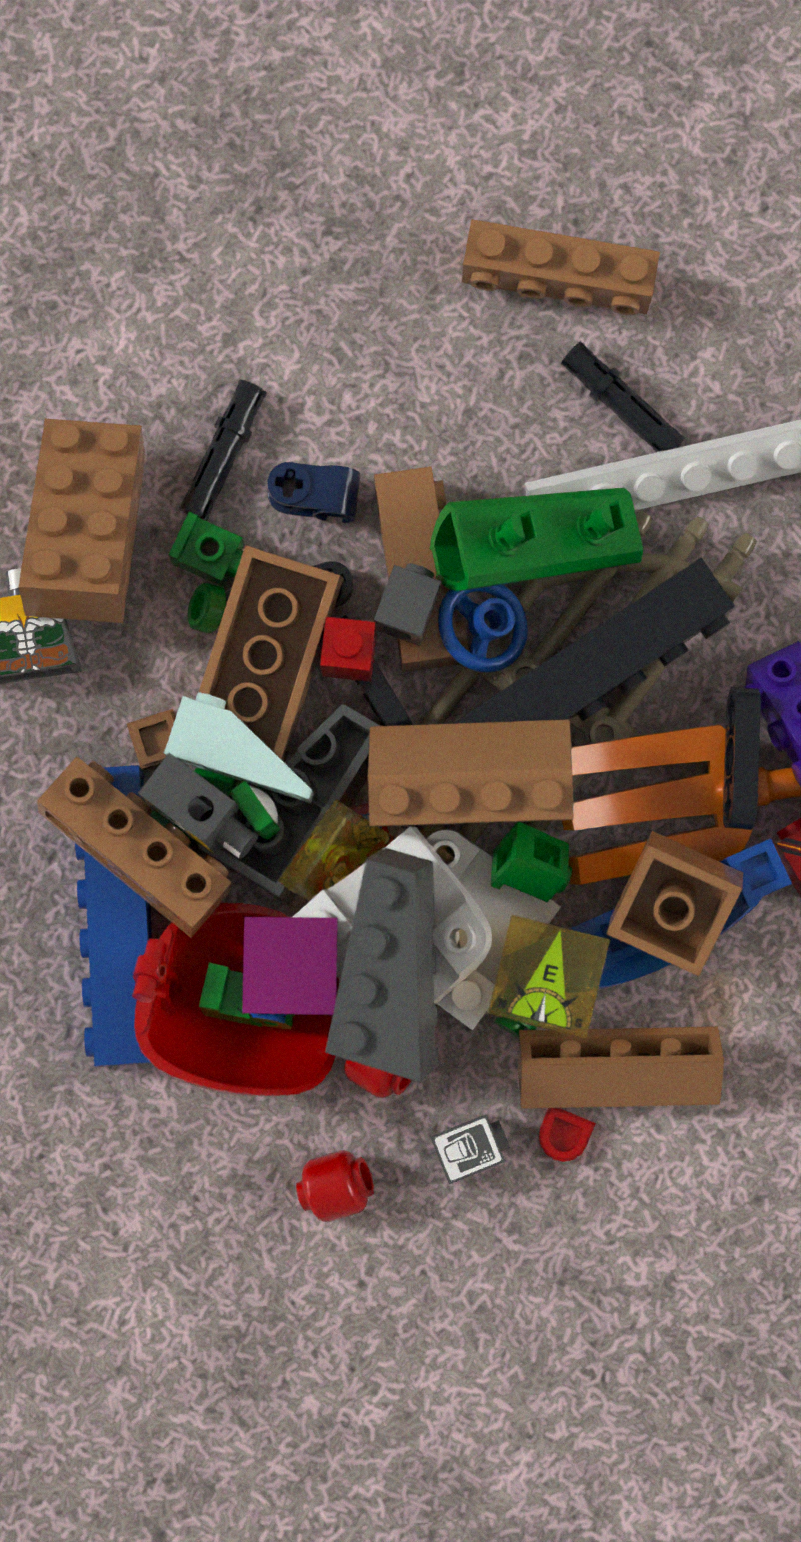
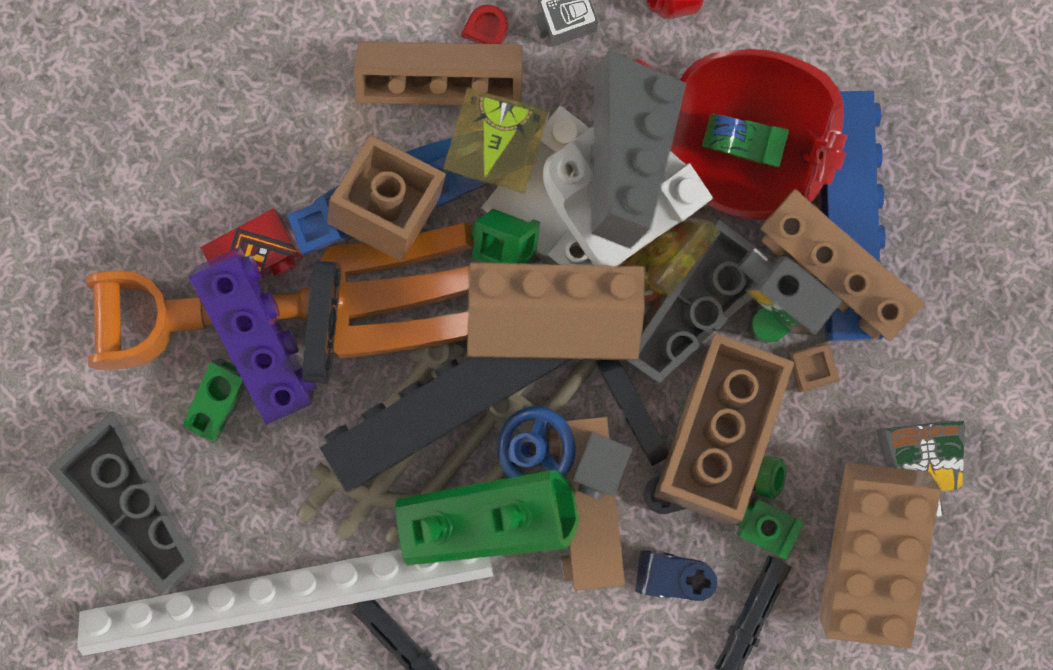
camera: 175 degrees left, 5 degrees up
(221, 743) = (760, 344): light aqua slope -> none
(257, 808) = (737, 290): green tile -> none
(289, 965) = (712, 158): magenta sticker -> none
(348, 649) = (653, 428): red brick -> none

